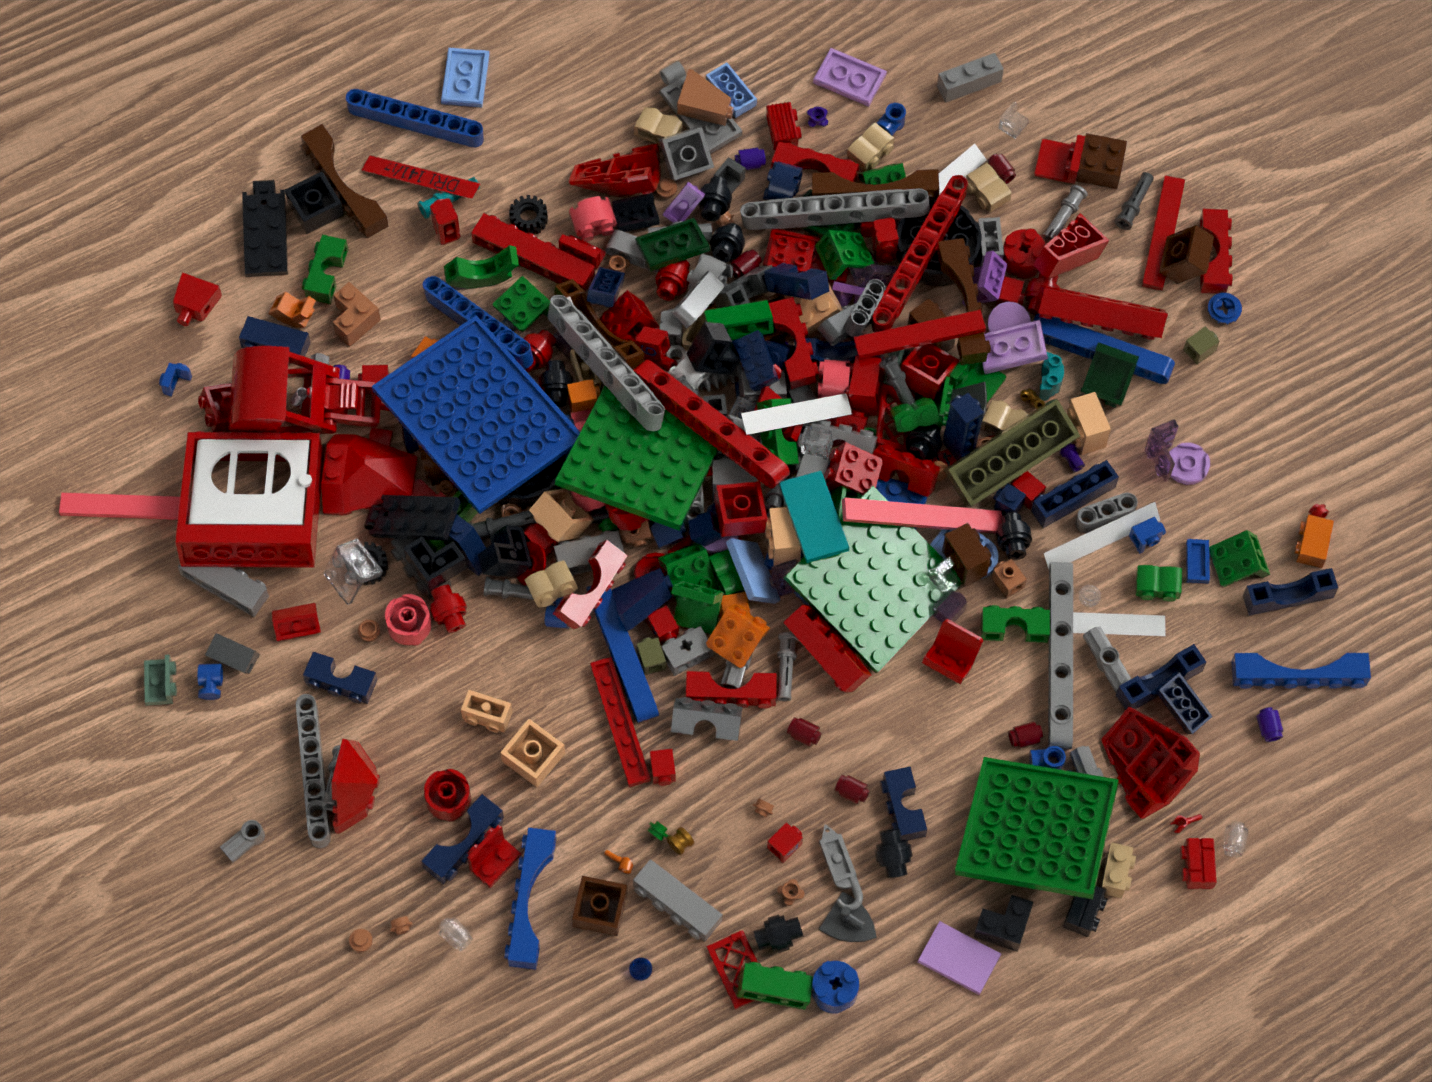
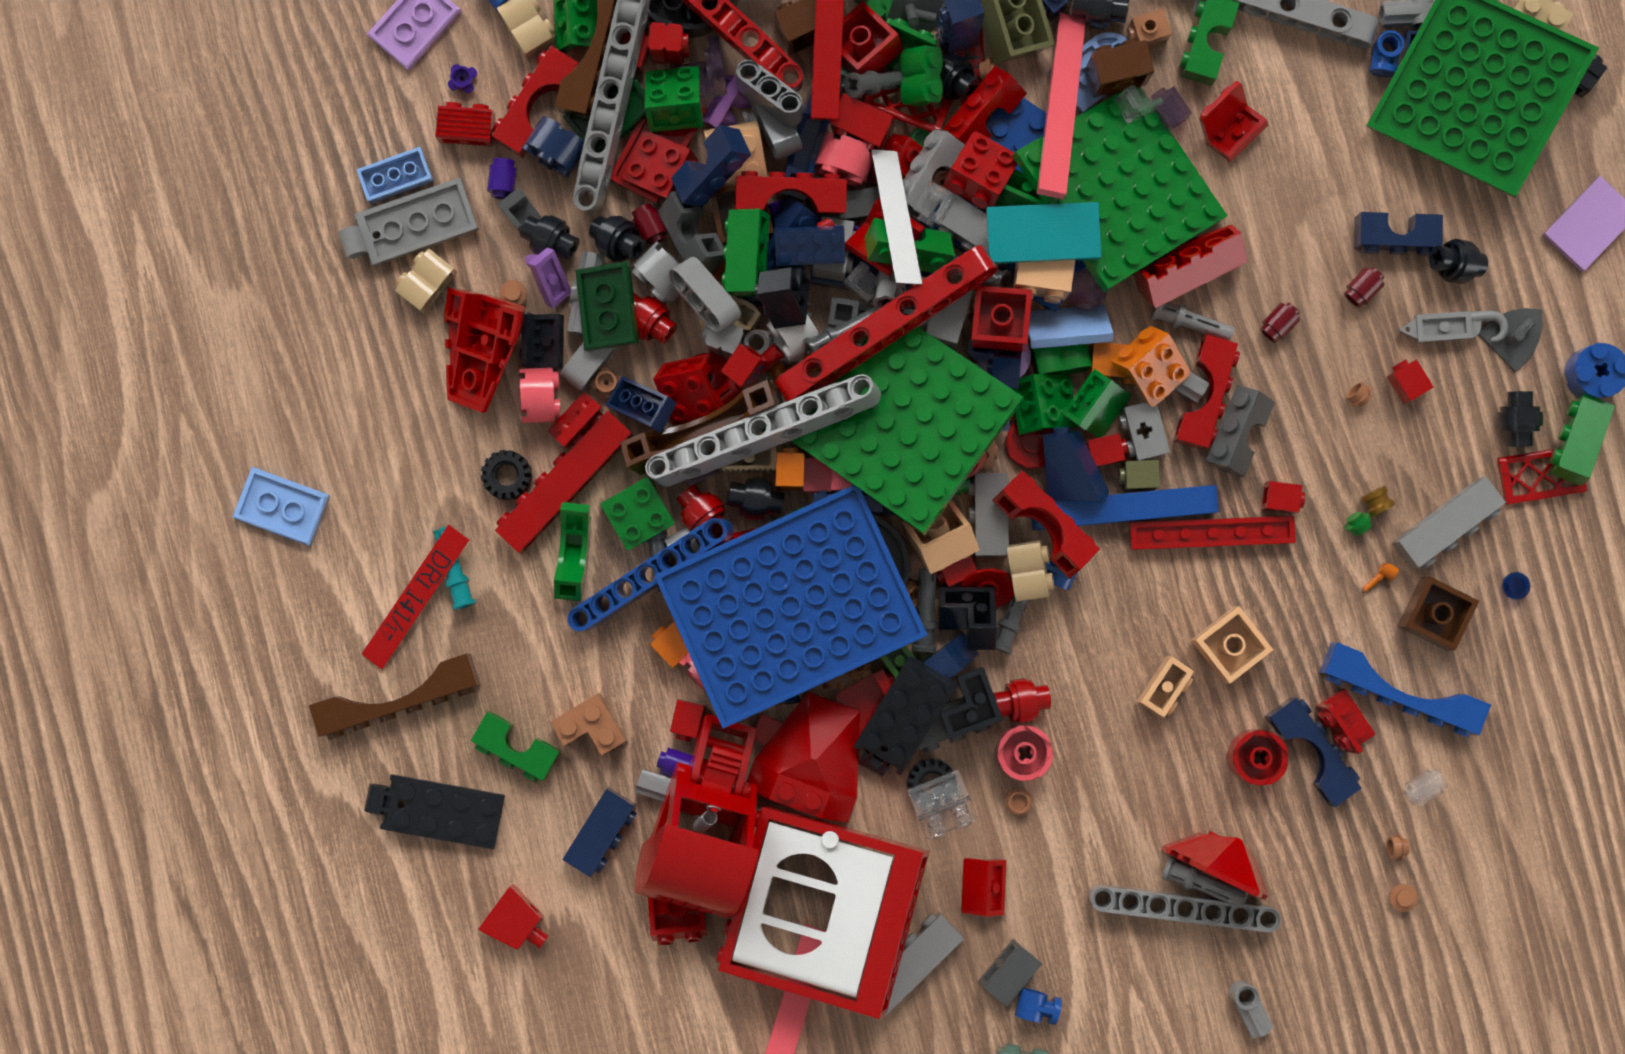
camera: 75 degrees left, 20 degrees up
(170, 378) = (619, 974): blue bracket -> none
(291, 310) = (564, 800): orange brick -> none
(314, 202) = (419, 740): black brick -> none
(356, 686) = (1065, 872): dark blue arch -> none
(422, 124) = (315, 592): blue beam -> none
(445, 221) = (492, 581): red brick -> none
(686, 153) = (478, 255): light grey brick -> none
(704, 100) = (408, 212): nougat slope -> none
(725, 219) = (581, 231): nougat plate -> none
(791, 885) = (1474, 391): nougat plate -> none
(1005, 929) = (1576, 160): black brick -> none
(1025, 735) = (1349, 69): dark red brick -> none

